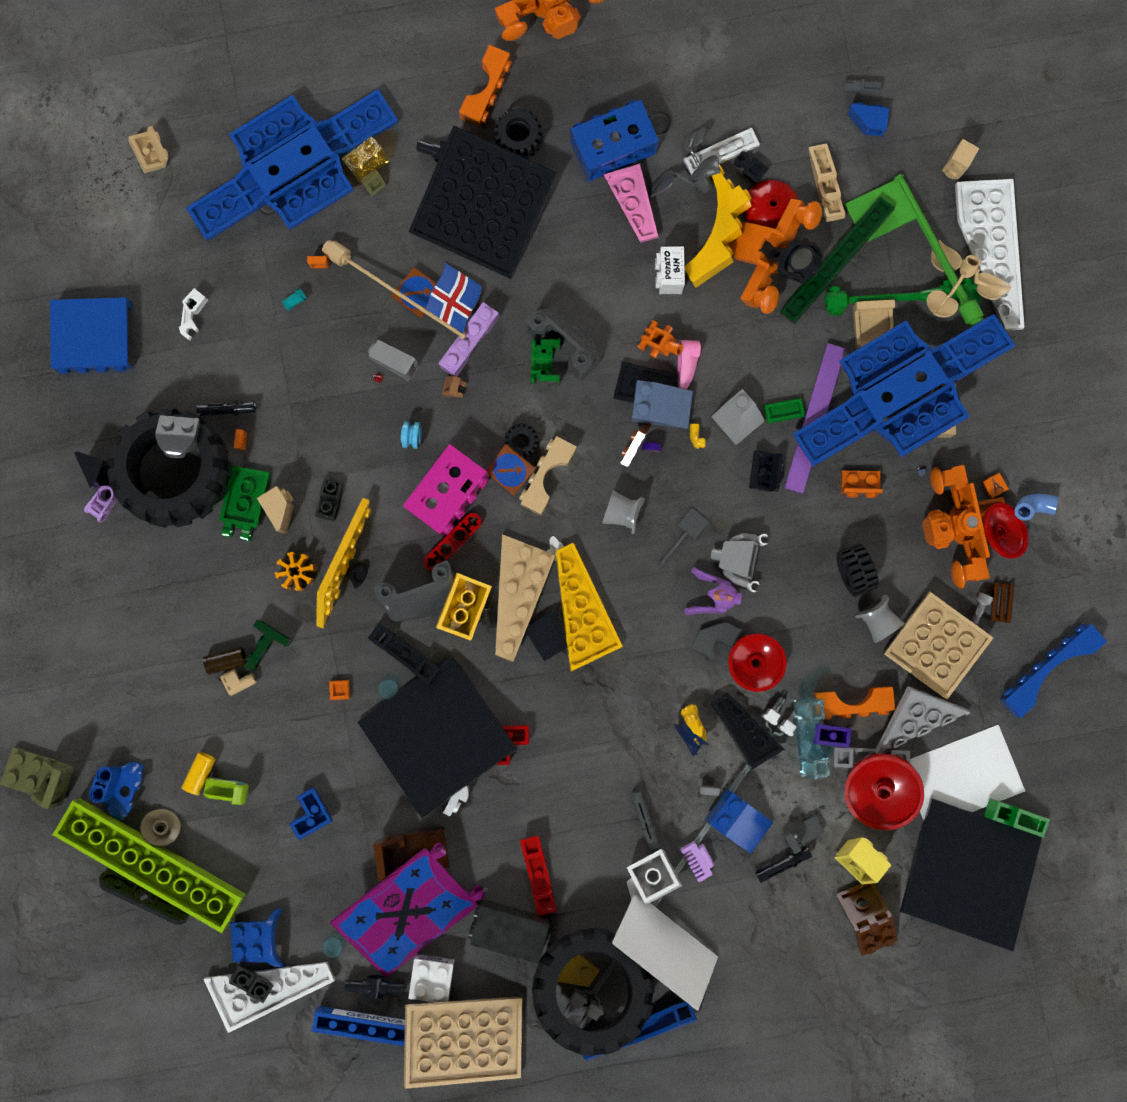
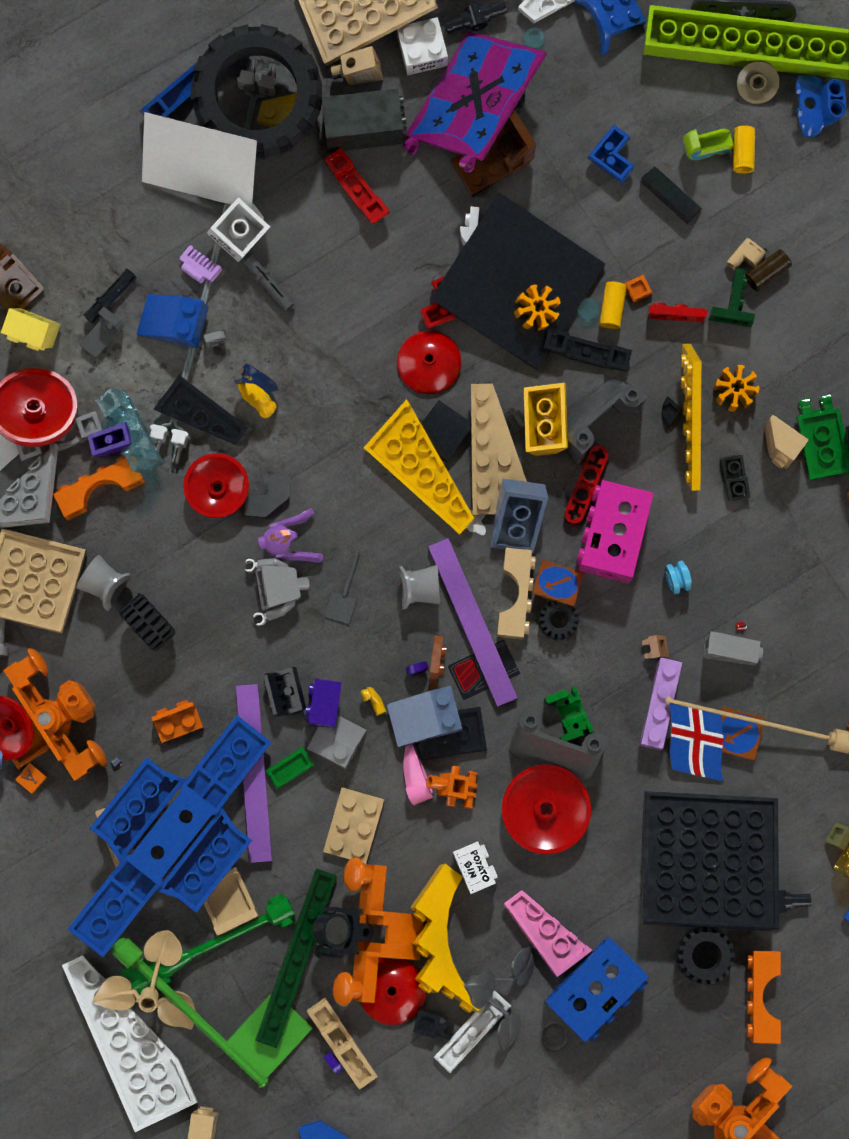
camera: 160 degrees right, 5 degrees down
(277, 760) = (670, 194): none -> black slope
(314, 655) = (678, 313): none -> red hinge
(366, 683) = (612, 305): none -> yellow pin
(425, 705) = (531, 301): none -> light orange gear
(487, 981) = (359, 67): none -> tan torso
(518, 537) = (518, 514): none -> sand blue slope
(549, 688) = (429, 376): none -> red dish
(591, 468) = (472, 622): none -> medium lavender tile
(595, 294) = (546, 809): none -> red dish
(597, 427) = (469, 676): none -> black sticker
(739, 444) = (325, 702): none -> dark purple slope
(751, 345) = (353, 825): none -> tan plate
(840, 169) = (333, 1062): none -> dark purple tile

